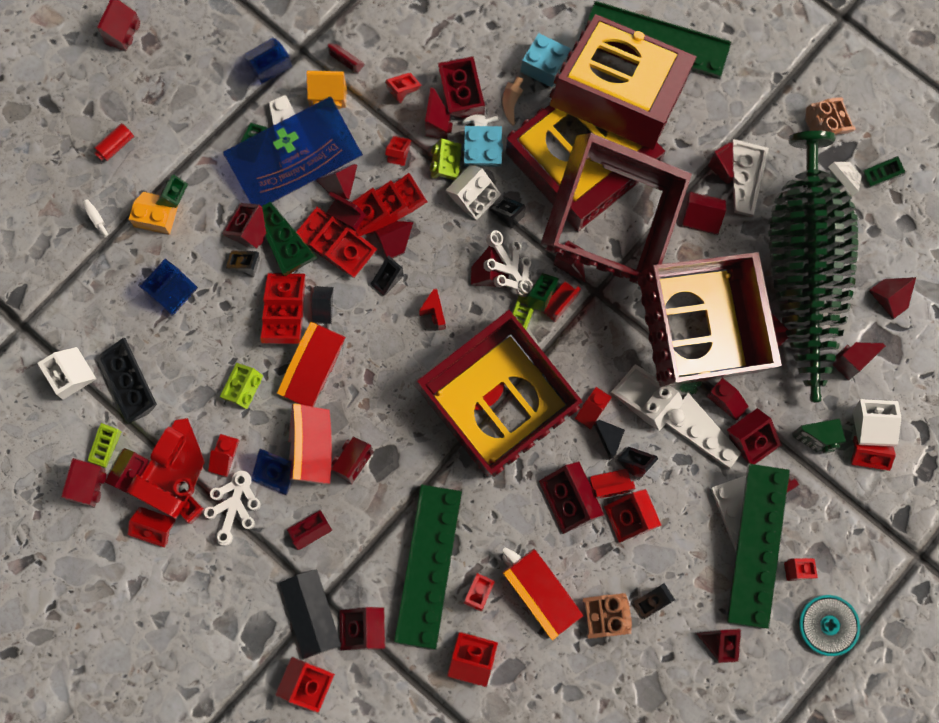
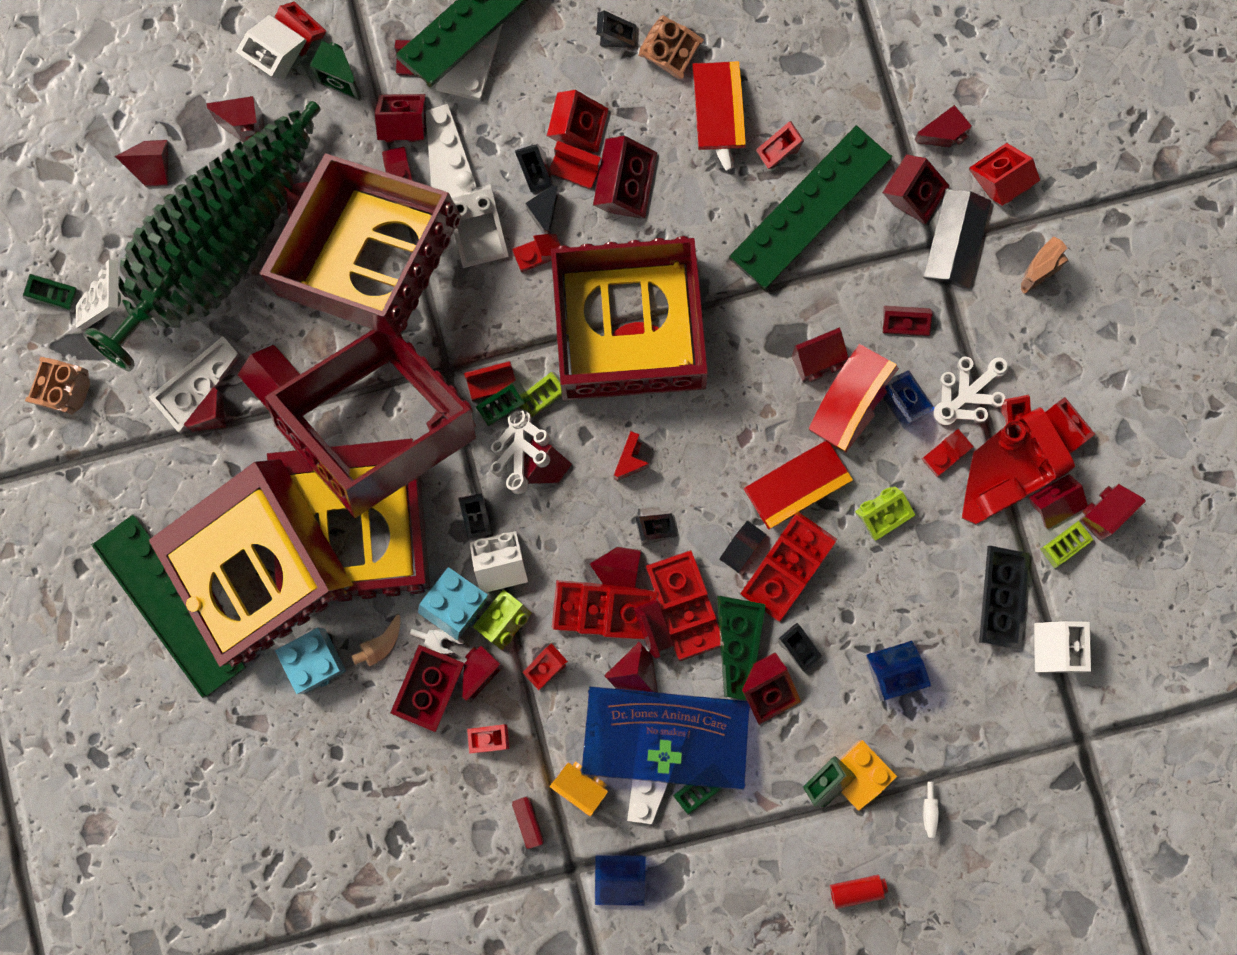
camera: 140 degrees left, 5 degrees up
(233, 629) = (1045, 264): none -> nougat slope
(368, 689) = (945, 130): none -> dark red slope
(472, 659) = (826, 92): red slope -> none

